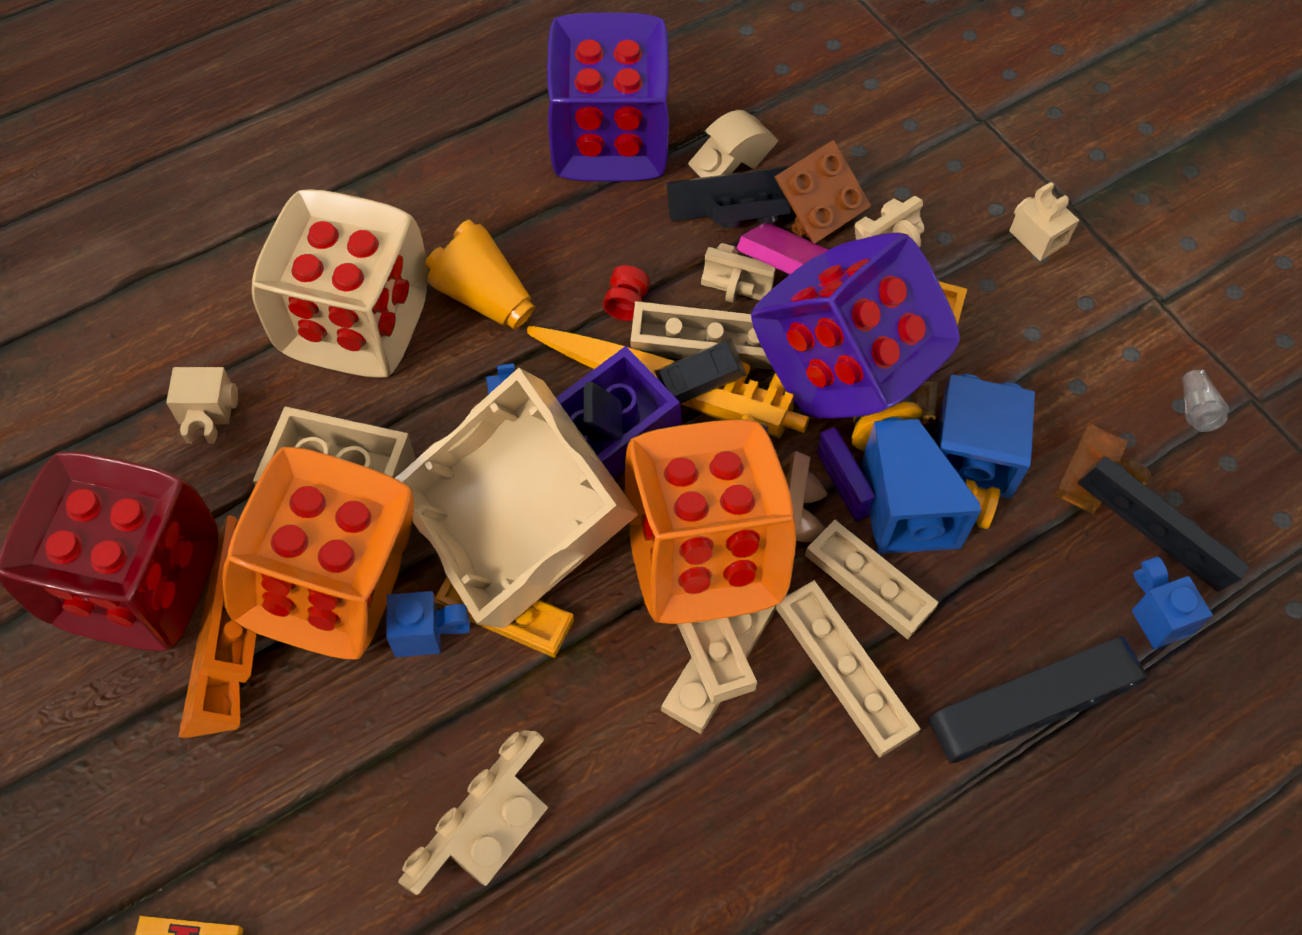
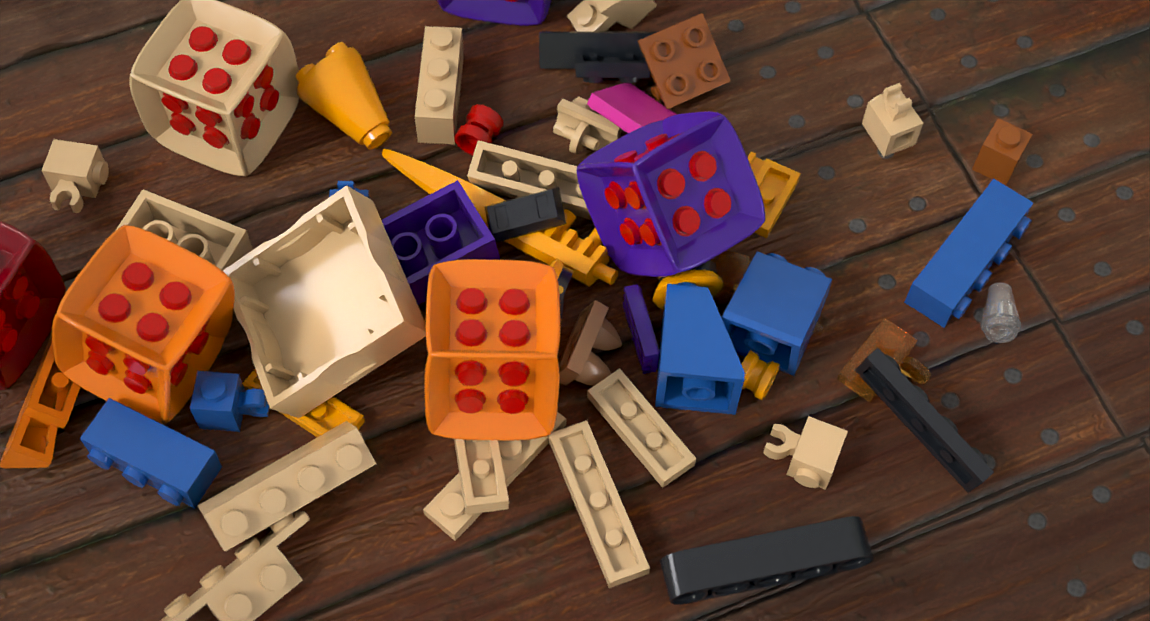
camera: 10 degrees right, 0 degrees up
(349, 695) = (150, 454): none -> blue brick
(509, 706) = (286, 485): none -> tan brick
(575, 252) = (439, 85): none -> tan brick
(602, 414) = (419, 238): black slope -> none
(895, 218) = (748, 105): tan hips -> none
(1057, 575) = (812, 451): none -> tan brick
(1156, 345) = (968, 254): none -> blue brick
(1160, 238) = (1002, 151): none -> dark orange brick
(1167, 609) = (910, 498): blue brick -> none

